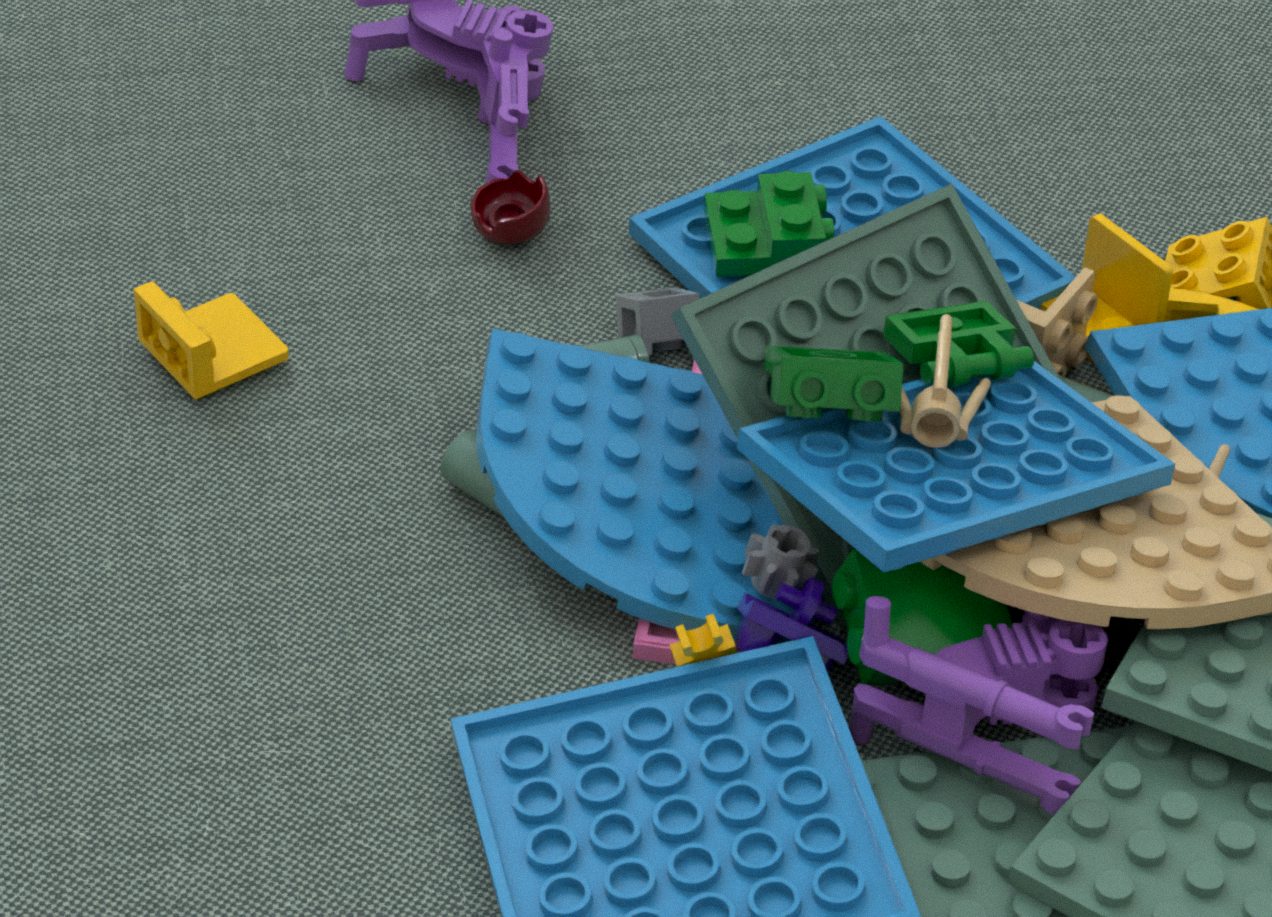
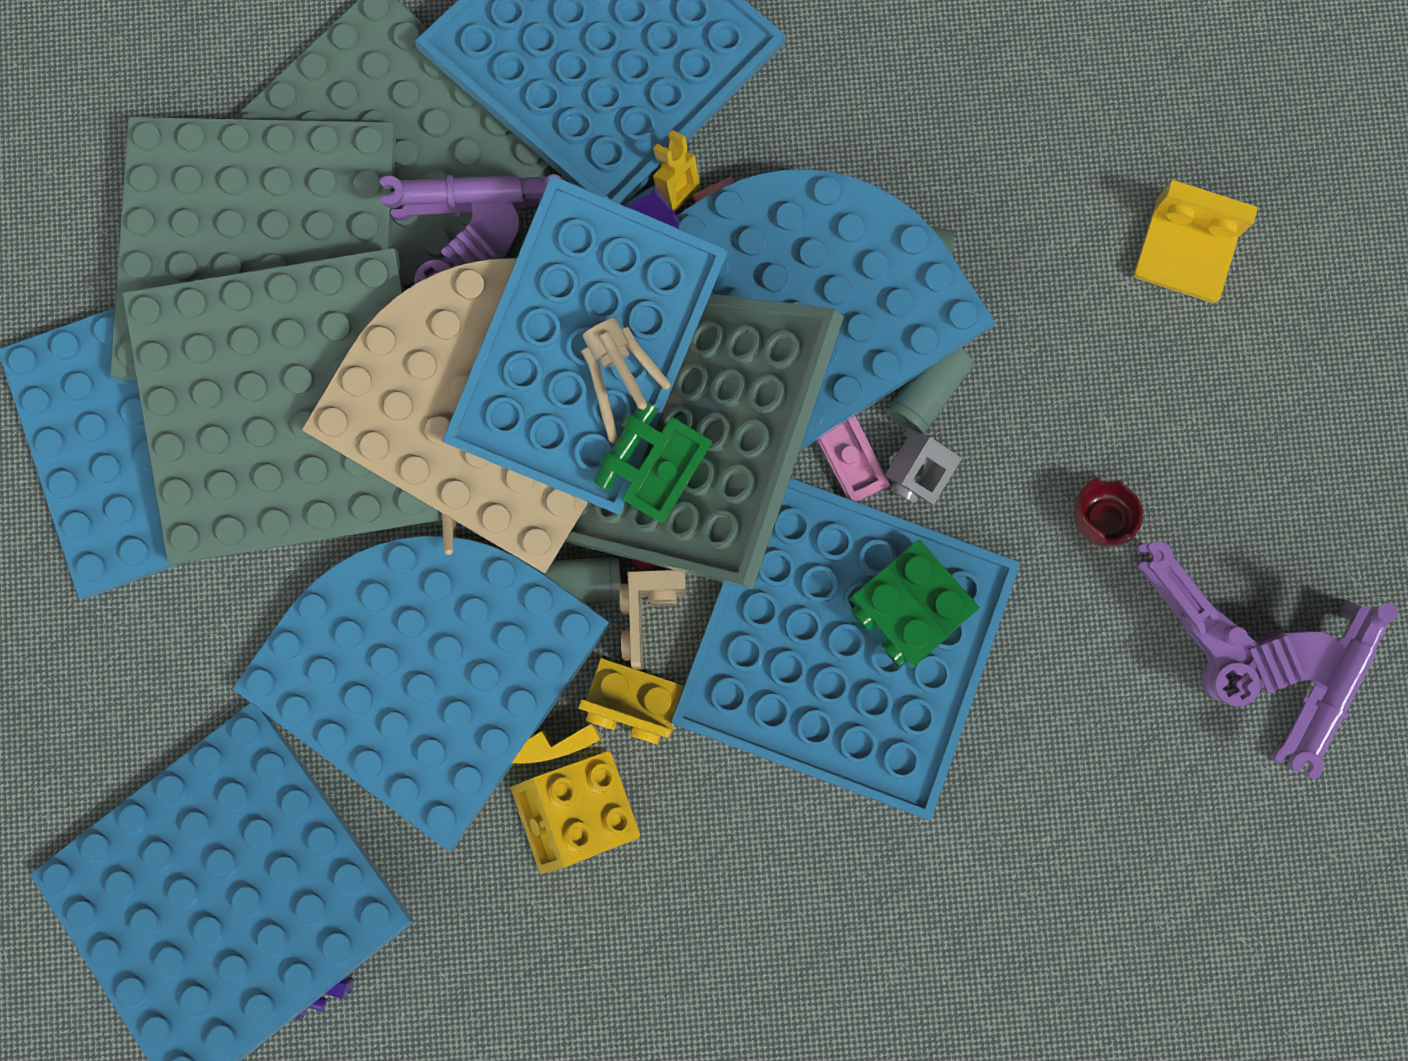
camera: 145 degrees right, 40 degrees up
(834, 378) = (697, 329): green plate -> none

